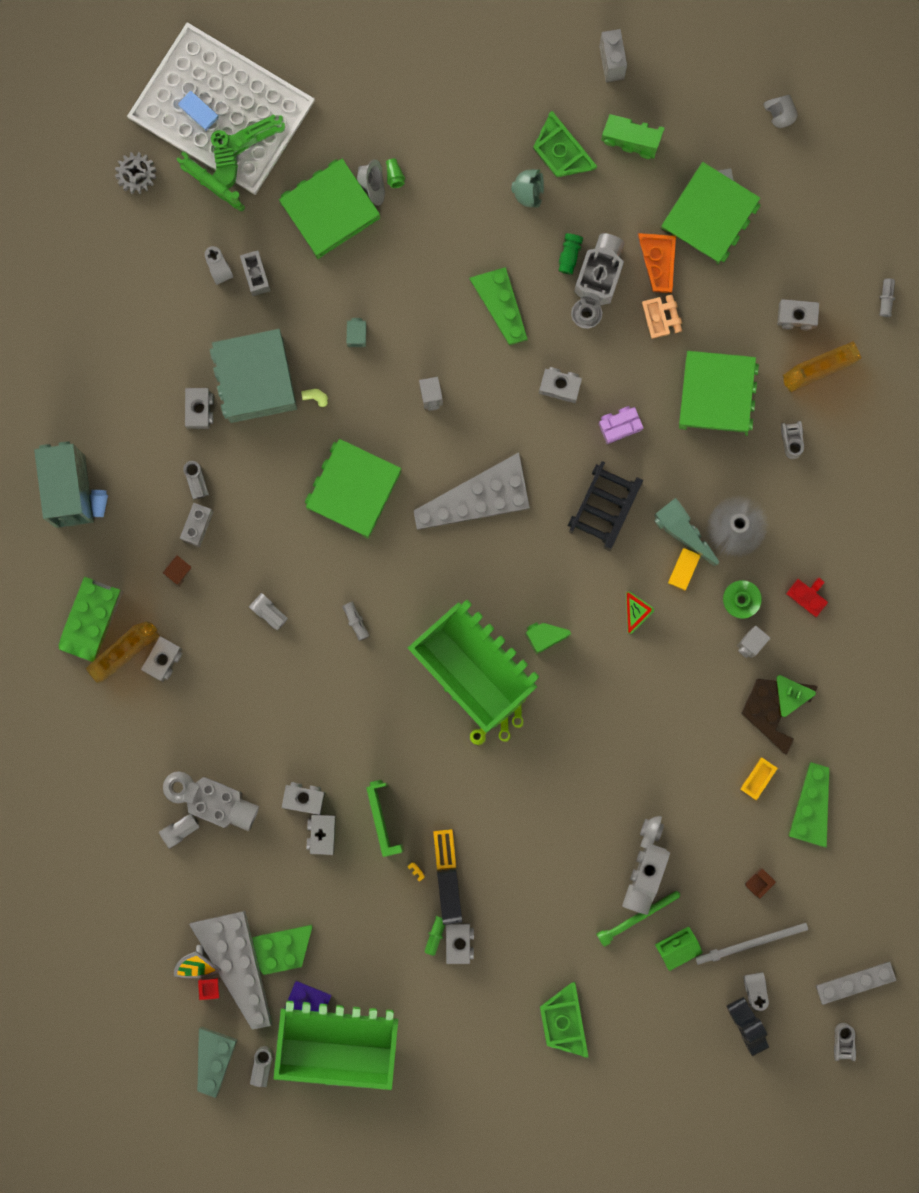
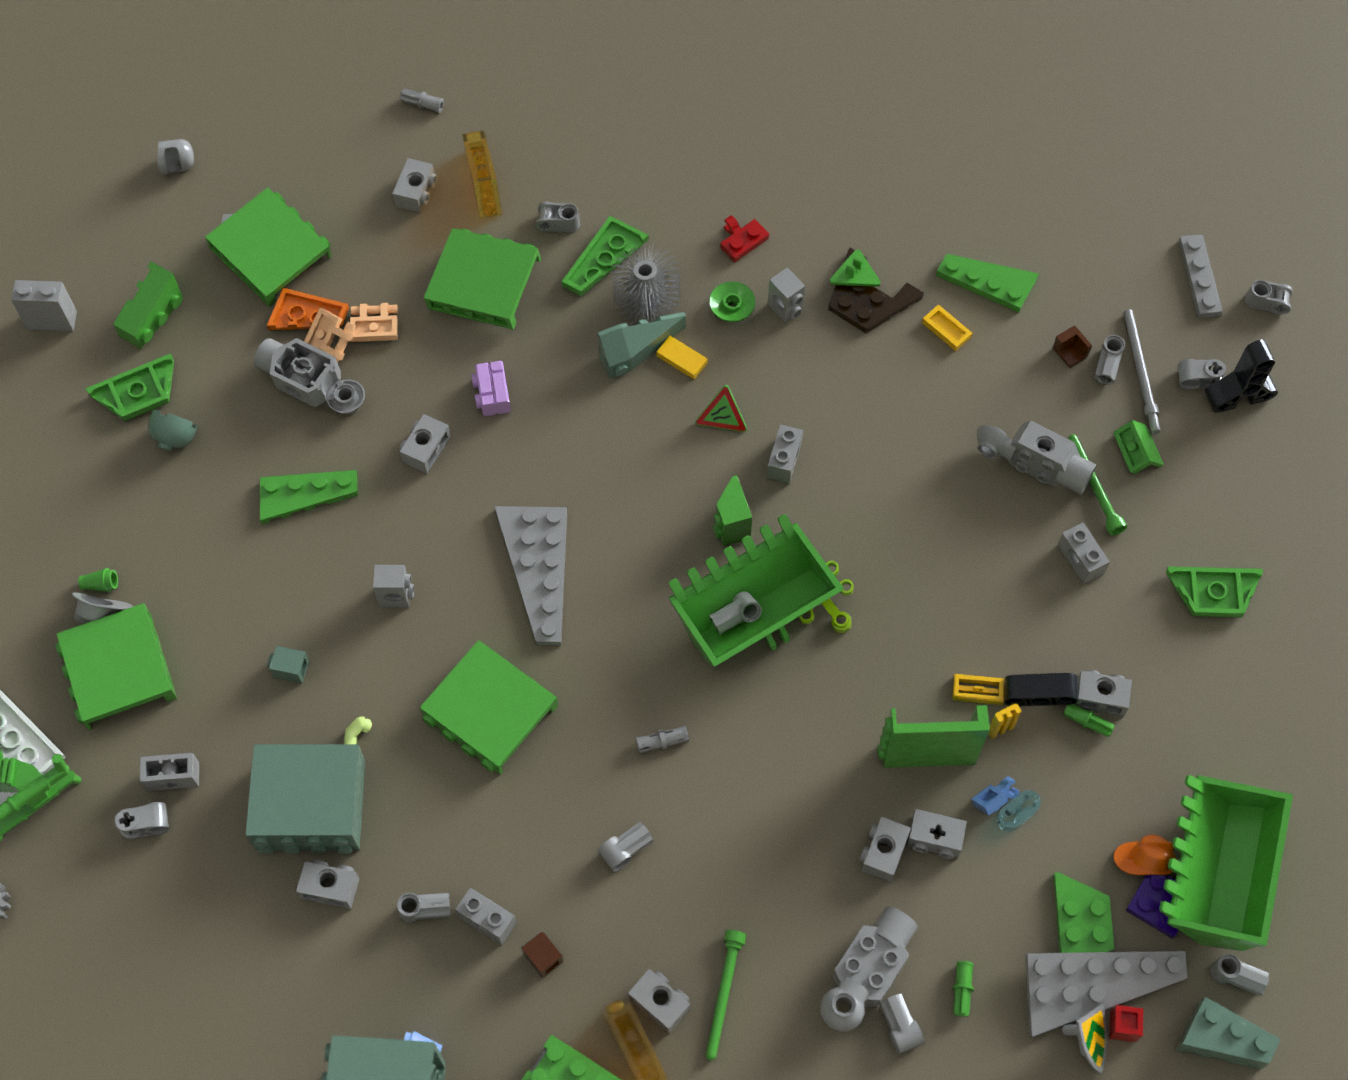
camera: 80 degrees left, 20 degrees down
(213, 870) = (963, 988): none -> bright green axle
(214, 703) = (734, 941): none -> bright green piece
(335, 989) = (1145, 856): none -> orange piece
(357, 889) = (1022, 815): none -> clear light blue beam
(358, 872) = (993, 797): none -> medium blue plate
(465, 660) = (735, 613): none -> light grey piece
(570, 253) = (270, 405): green axle -> none
(572, 914) = (1083, 553): none -> light grey brick
(610, 667) = (784, 454): none -> light grey brick
(624, 504) = (589, 400): black fence -> none
(639, 279) = (324, 330): none -> light nougat plate
(750, 915) = (1109, 360): none -> light grey piece
(770, 487) = (600, 254): none -> bright green wing

